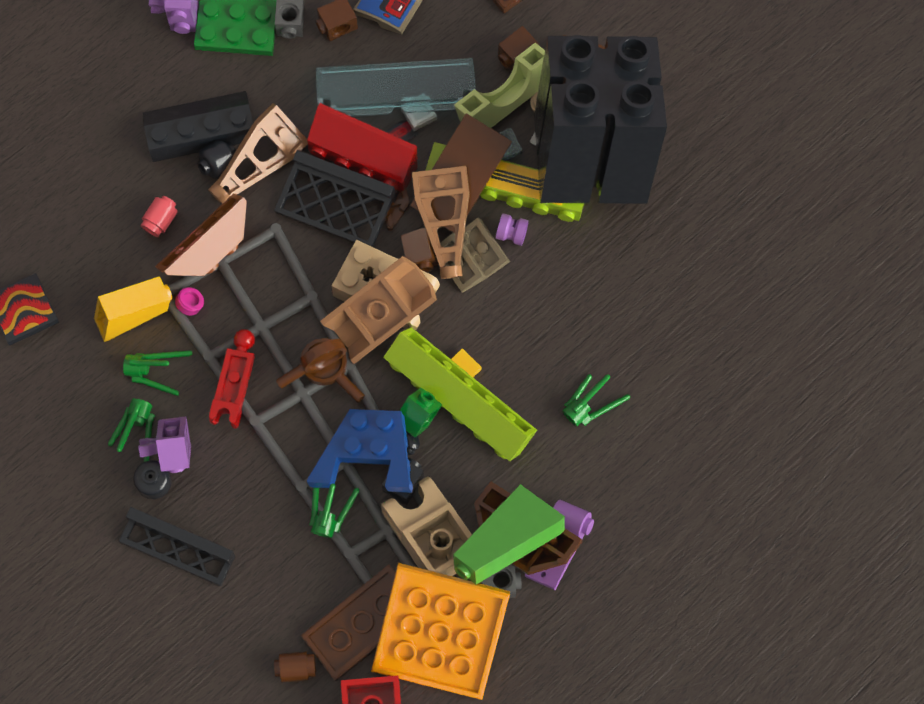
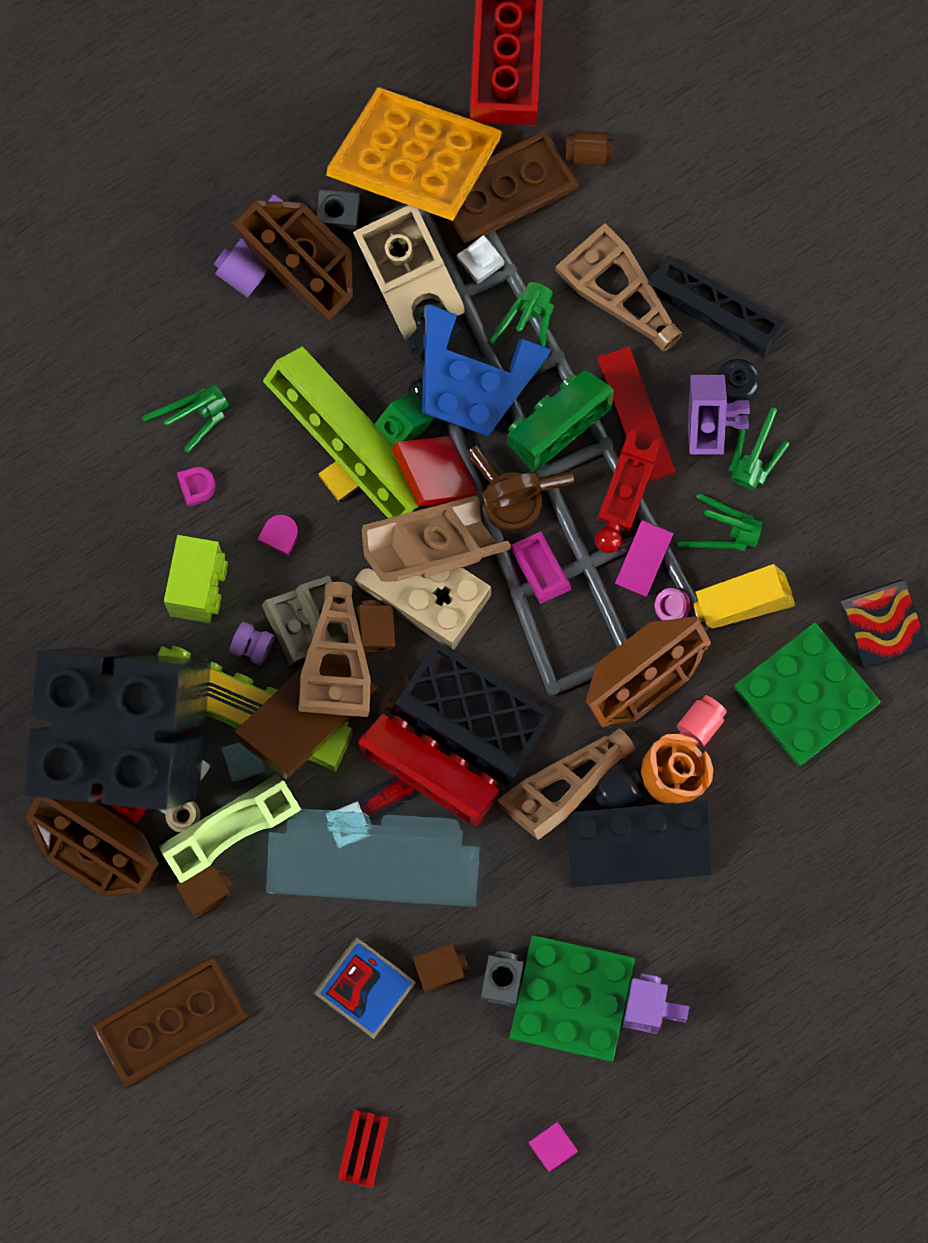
camera: 170 degrees left, 5 degrees up
(79, 250) = (807, 694): none -> green plate
(173, 170) = (676, 770): none -> orange cylinder
(214, 333) = (644, 558): none -> dark pink tile
(235, 456) = (634, 407): none -> red tile
(283, 569) = (595, 257): none -> medium nougat plate
(292, 423) = (560, 419): none -> green slope
(296, 315) = (540, 567): none -> dark pink tile
(374, 555) = (480, 259): none -> white tile
(388, 373) = (434, 470): none -> red tile
(504, 318) = (279, 534): none -> dark pink tile
(507, 535) = (317, 234): bright green slope -> none
(563, 263) = (195, 578): none -> lime brick
(577, 348) = (197, 485): none -> dark pink tile

